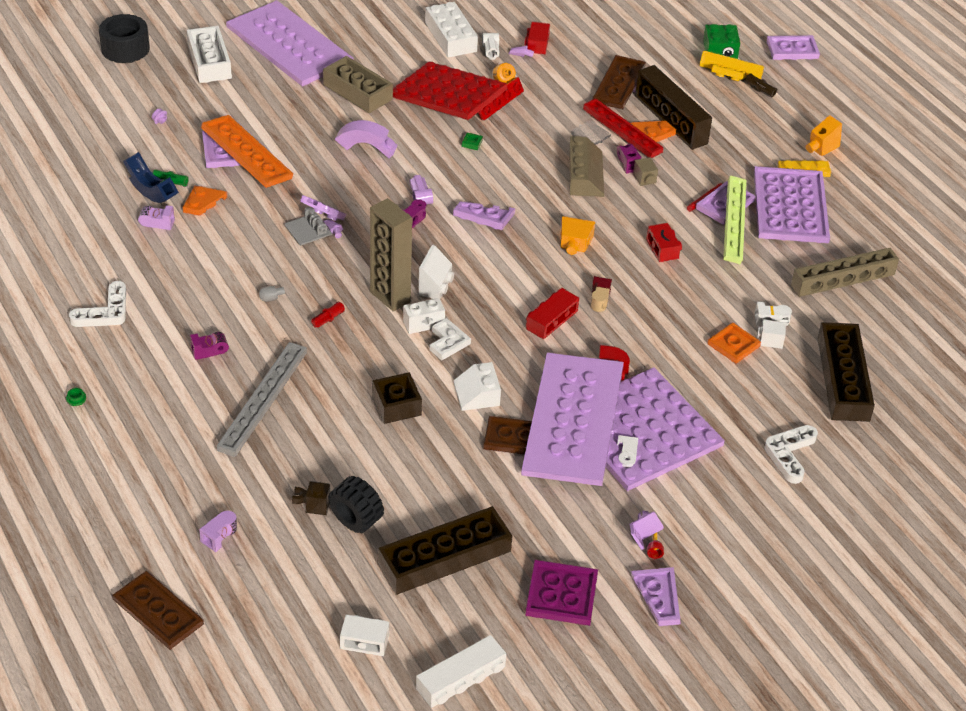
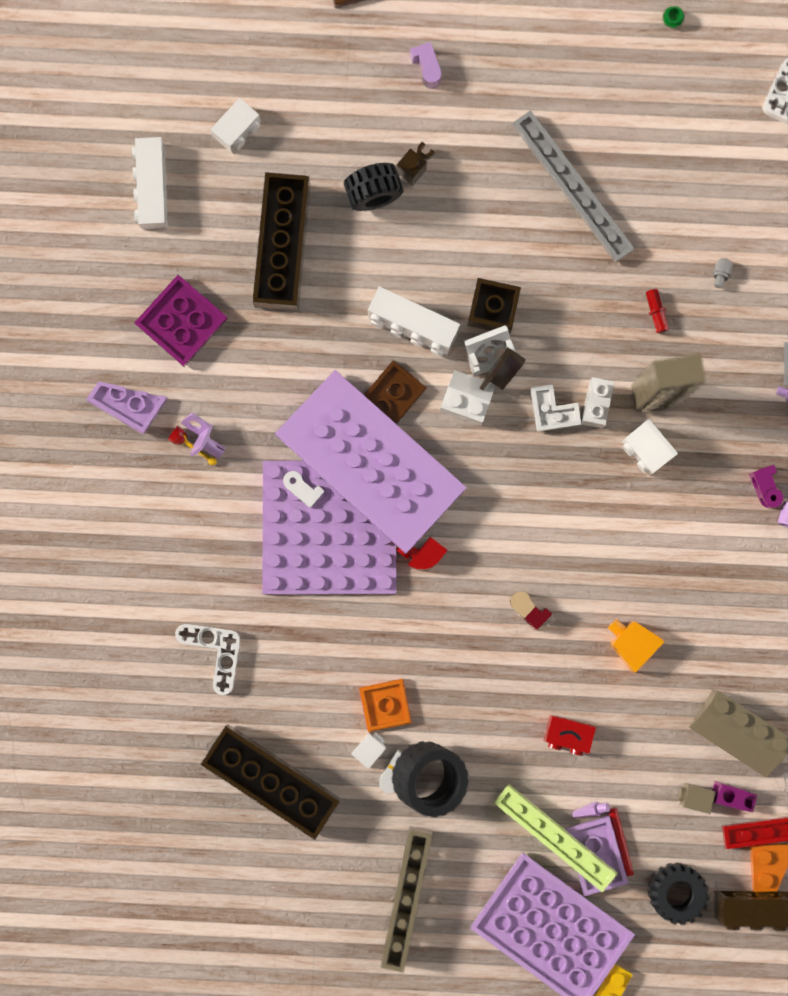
camera: 125 degrees right, 40 degrees up
(208, 345) = (677, 170): magenta leg -> none
(422, 376) = (474, 343): none -> white piece
(445, 369) = (504, 369): none -> dark brown panel
(448, 436) = (413, 322): none -> white brick
(490, 216) = (723, 567): lavender wing -> none
(552, 313) = (529, 538): red brick -> none
(700, 216) = (591, 810): none -> lavender bar
(711, 156) = (695, 902): none -> black tyre
(760, 285) = (449, 793): none -> black tyre

